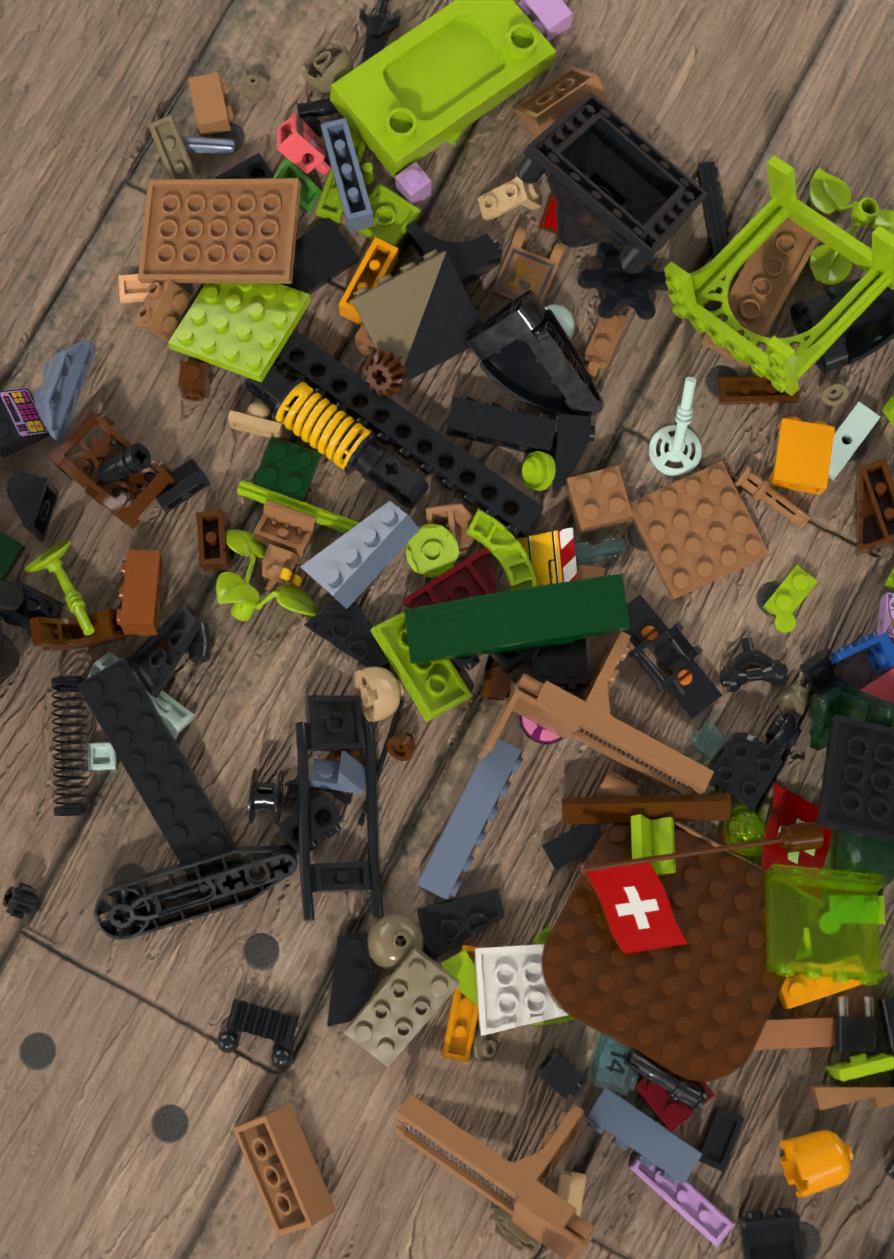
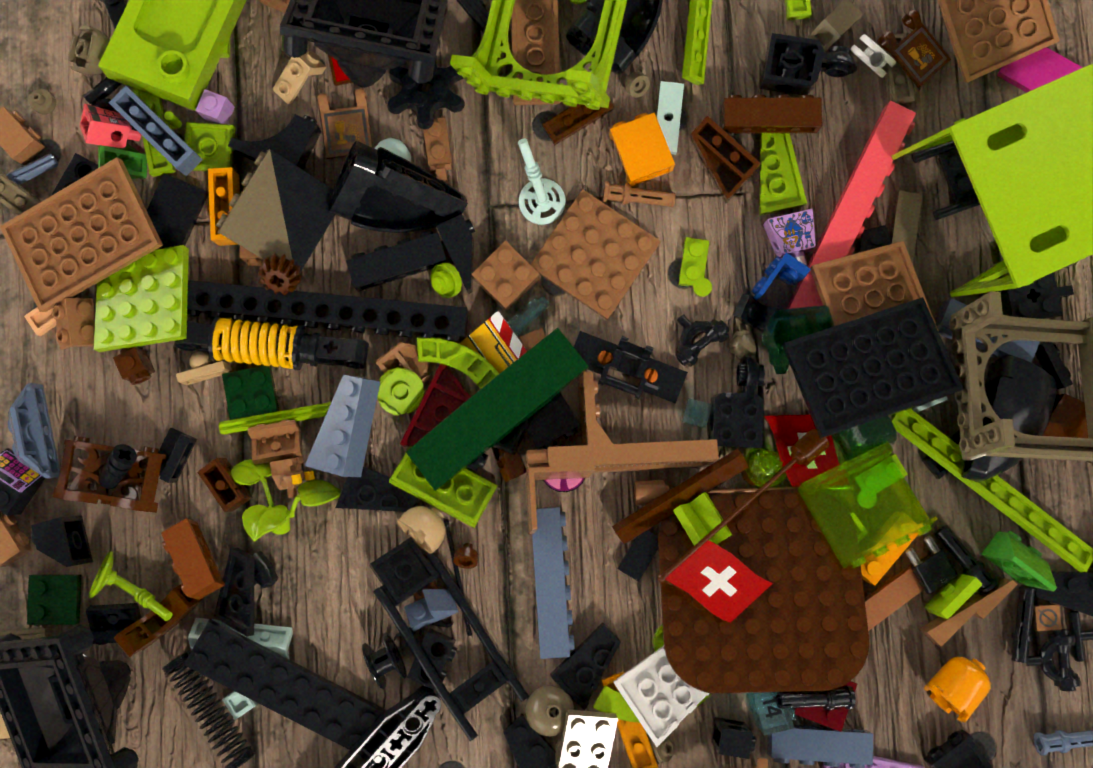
camera: 25 degrees left, 5 degrees up
(720, 1138) = (877, 709): black tile -> none

